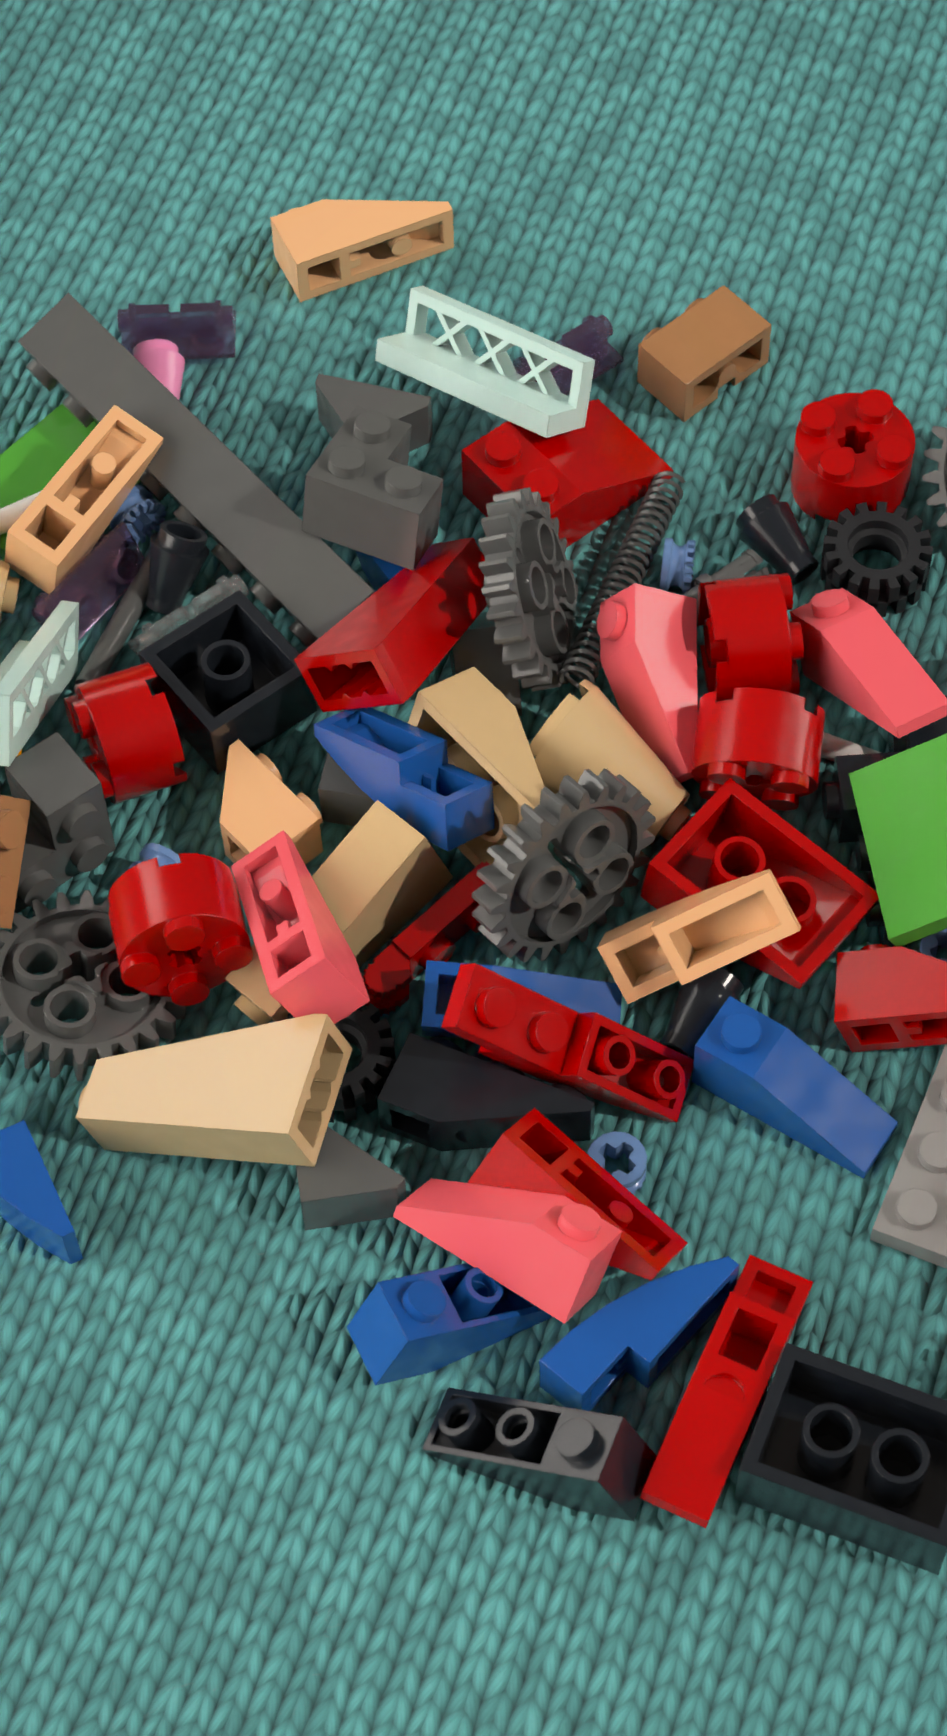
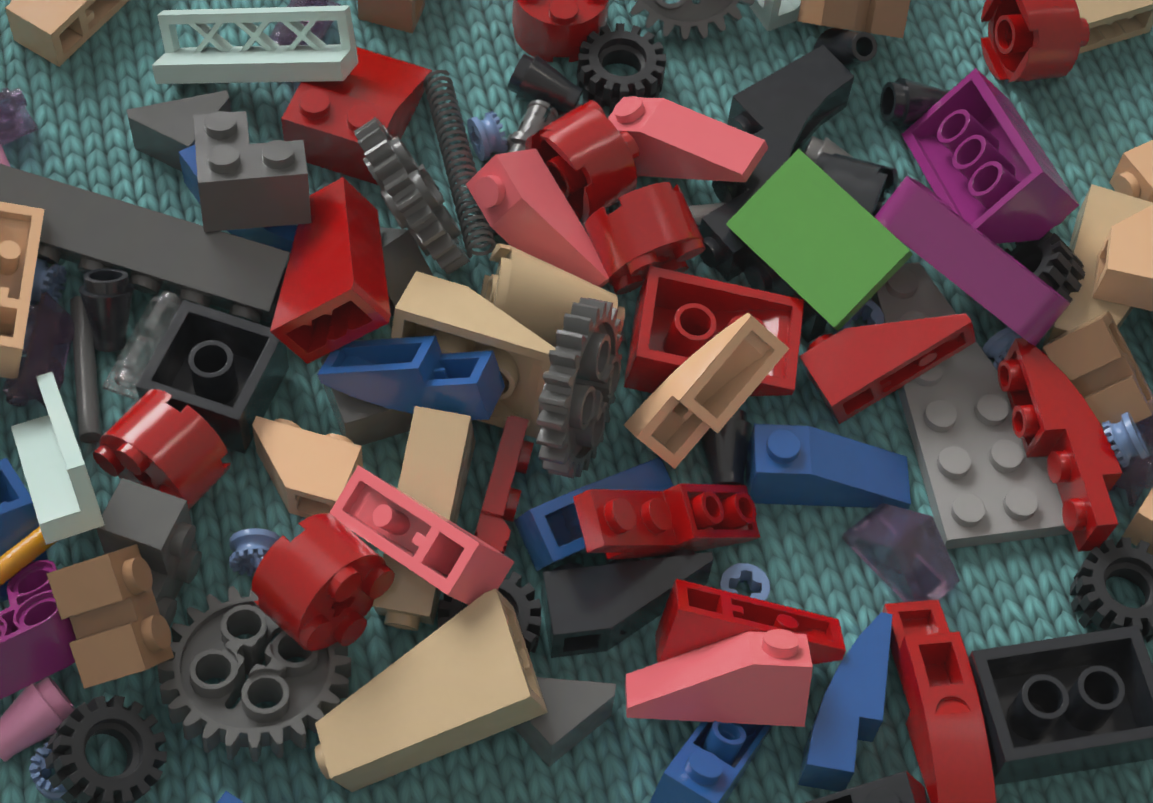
camera: 40 degrees left, 0 degrees up
(816, 1221) = (904, 552): none -> slope

